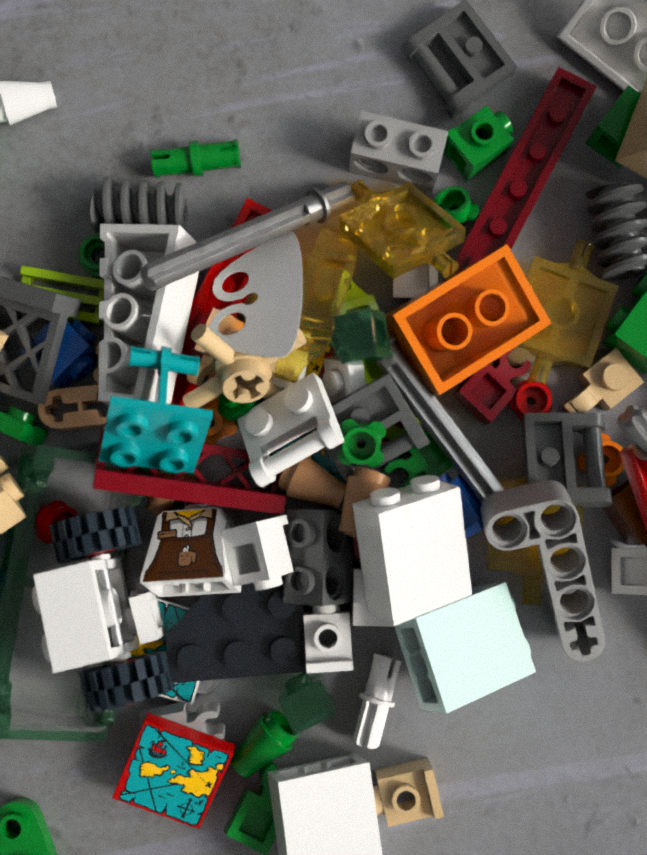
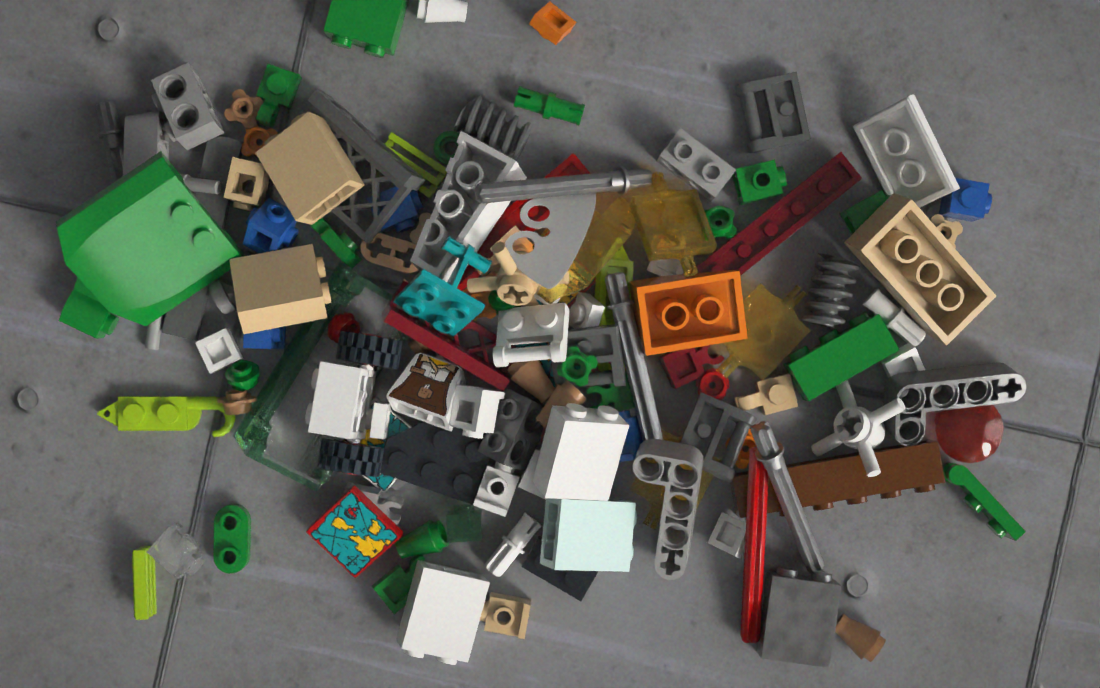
camera: 25 degrees right, 5 degrees up
(159, 63) = (552, 23): none -> orange plate
(361, 337) = (608, 294): clear green plate -> none
(472, 717) = (569, 581): none -> black plate

